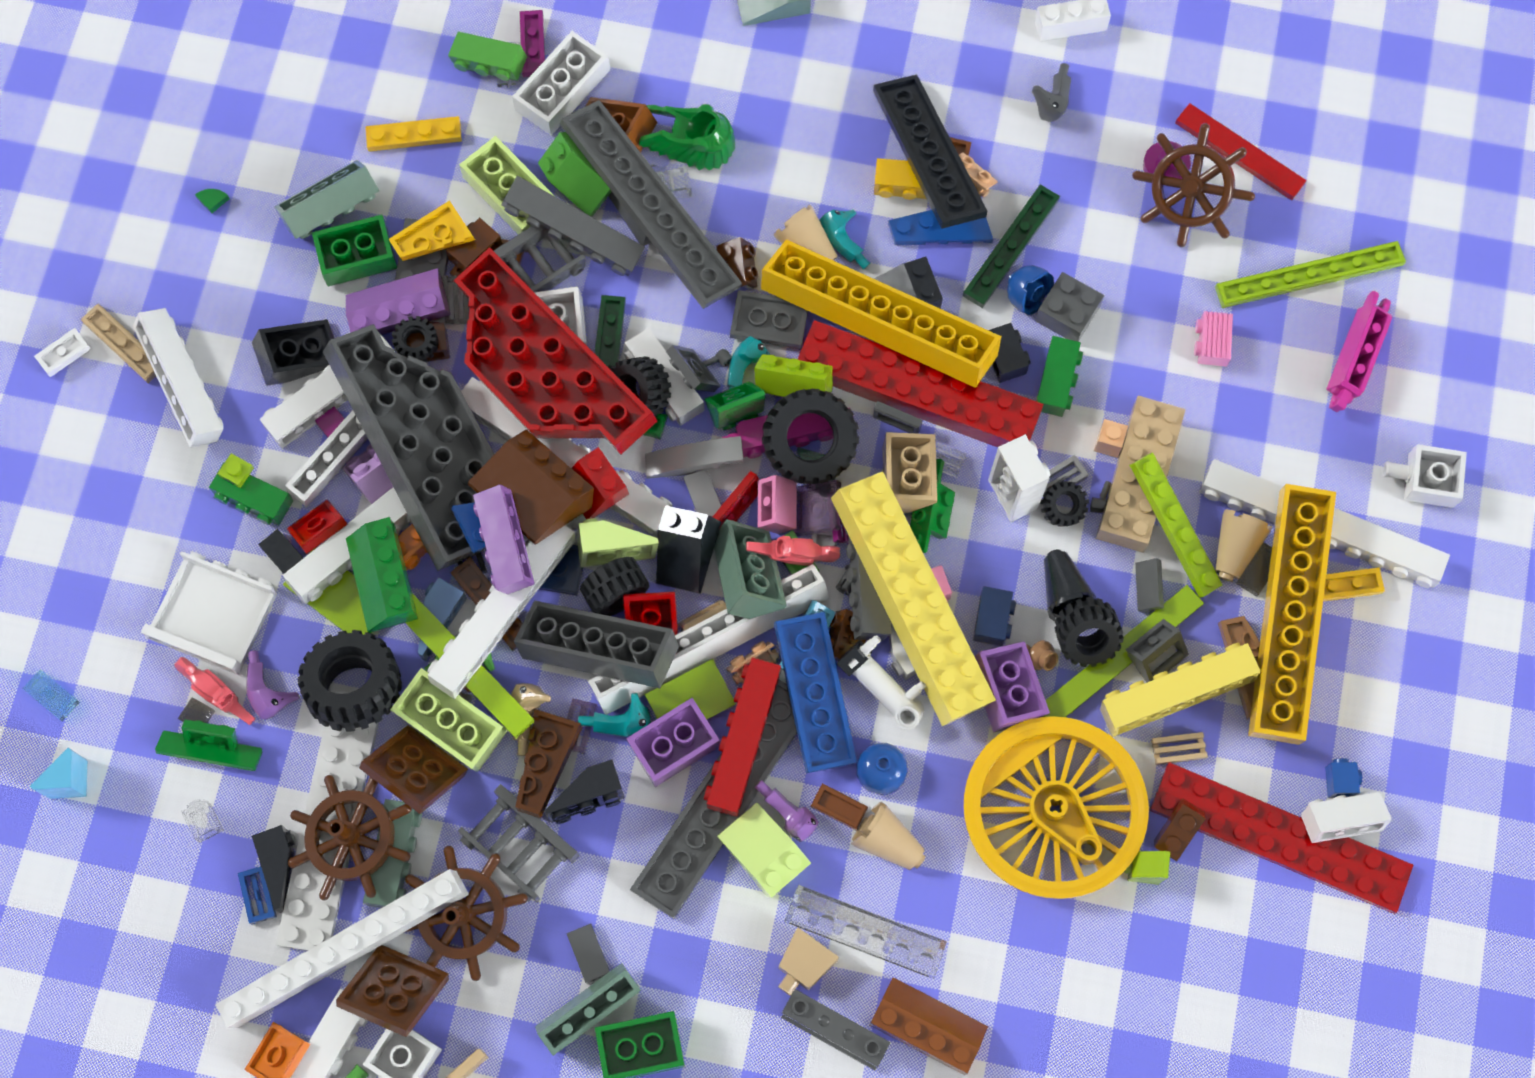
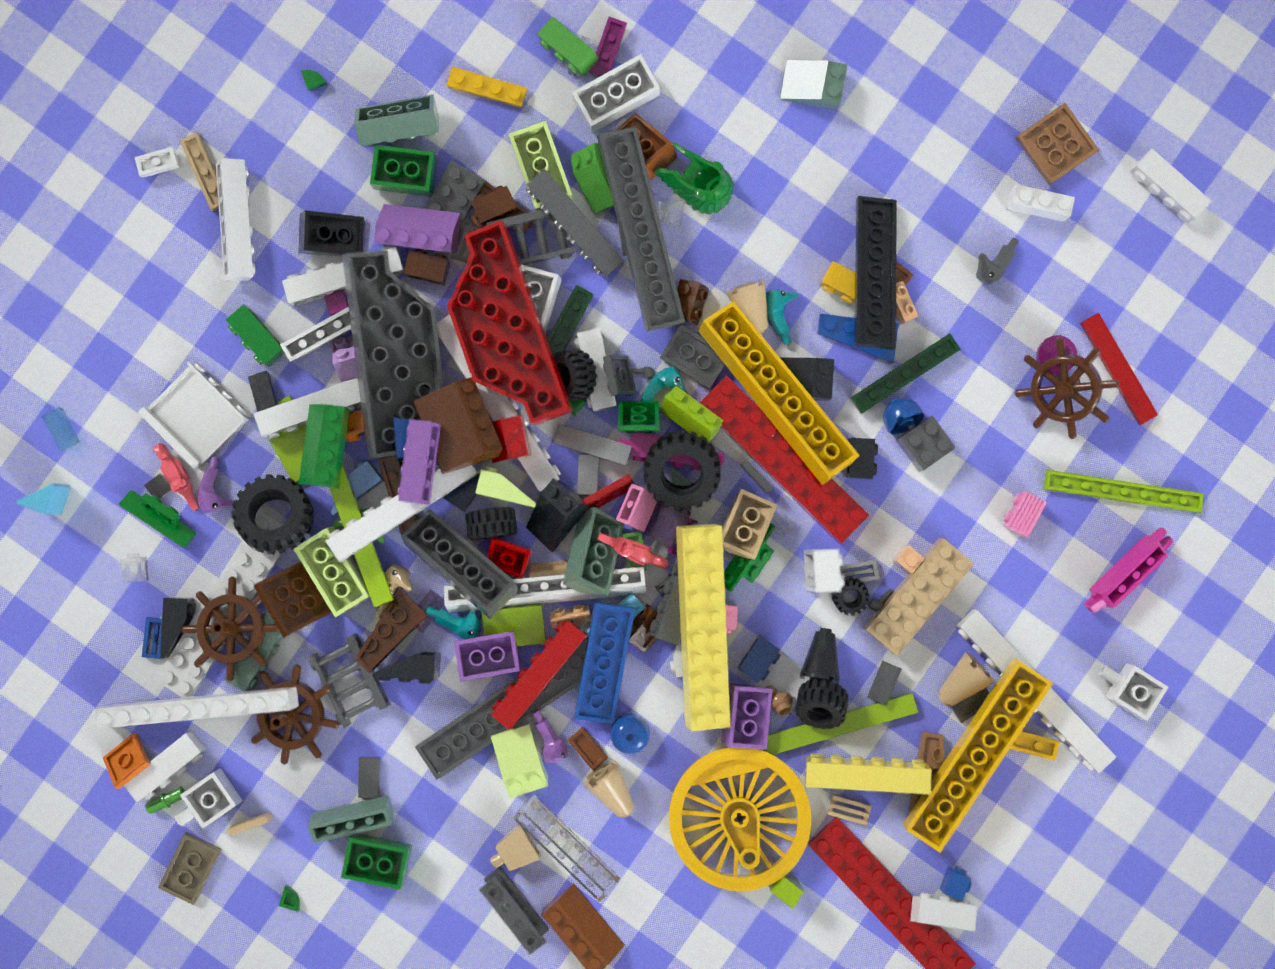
camera: 25 degrees right, 15 degrees up
(235, 470) = (249, 315): lime plate -> none
(317, 526) = (294, 382): red tile -> none
(392, 990) = (220, 752): reddish brown plate -> none
(415, 326) = (412, 257): black tyre -> none
(432, 233) = (465, 184): yellow wing -> none
(882, 685) = (664, 699): white piece -> none
(1059, 375) = (892, 494): green brick -> none
(1155, 643) = (865, 731): dark grey tile -> none
(1176, 525) = (924, 649): lime plate -> none
(1179, 829) = (820, 872): reddish brown brick -> none

